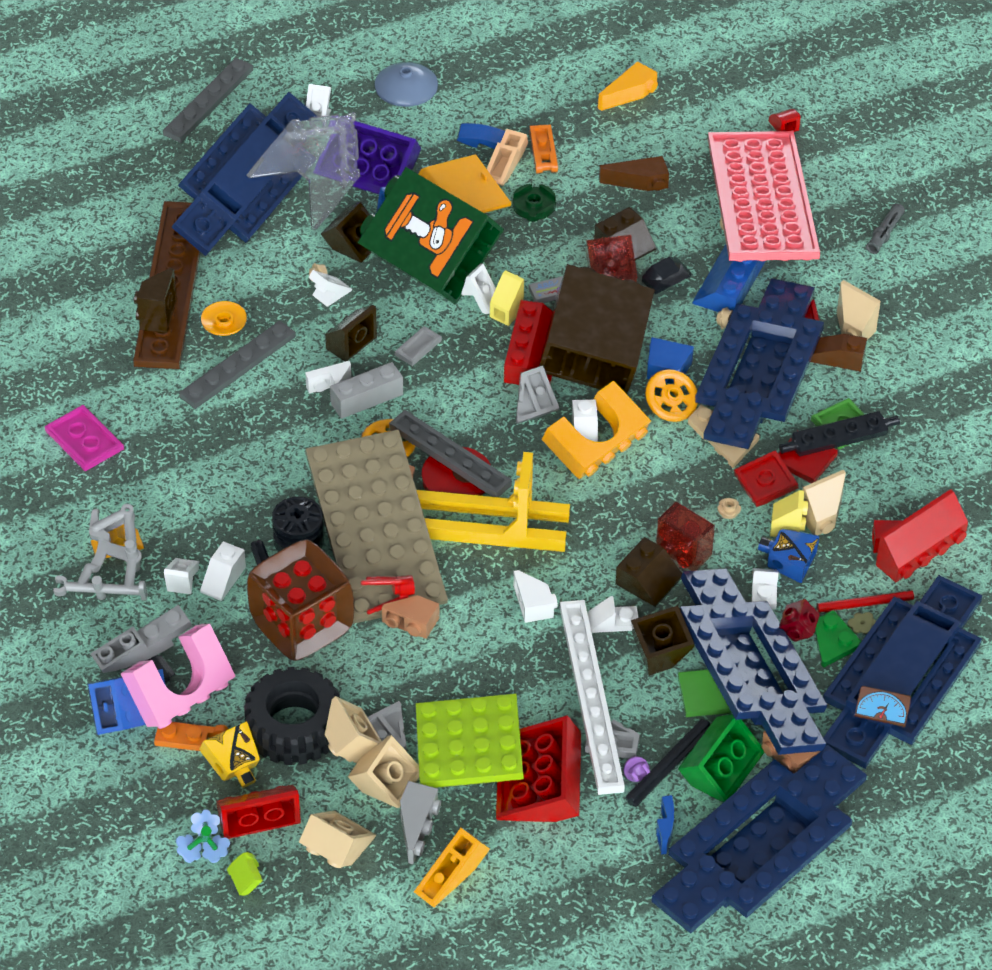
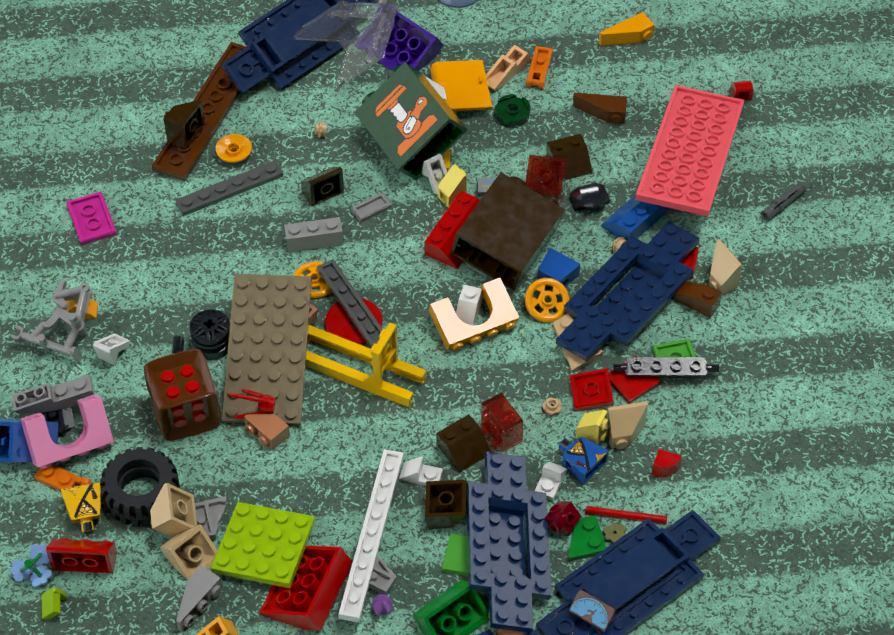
camera: 20 degrees right, 5 degrees up
(223, 570) = (143, 351): white slope -> none
(323, 378) = (290, 216): white slope -> none
(328, 287) = (323, 142): white slope -> none
(335, 838) = (131, 593): tan slope -> none
(344, 232) = (352, 99): dark brown slope -> none
(474, 134) = (495, 43): blue slope -> none
(534, 395) = (439, 273): light grey wing -> none
(534, 597) = (365, 440): white slope -> none
(667, 764) = (407, 607): black axle -> none
(922, 537) = (692, 474): slope -> none

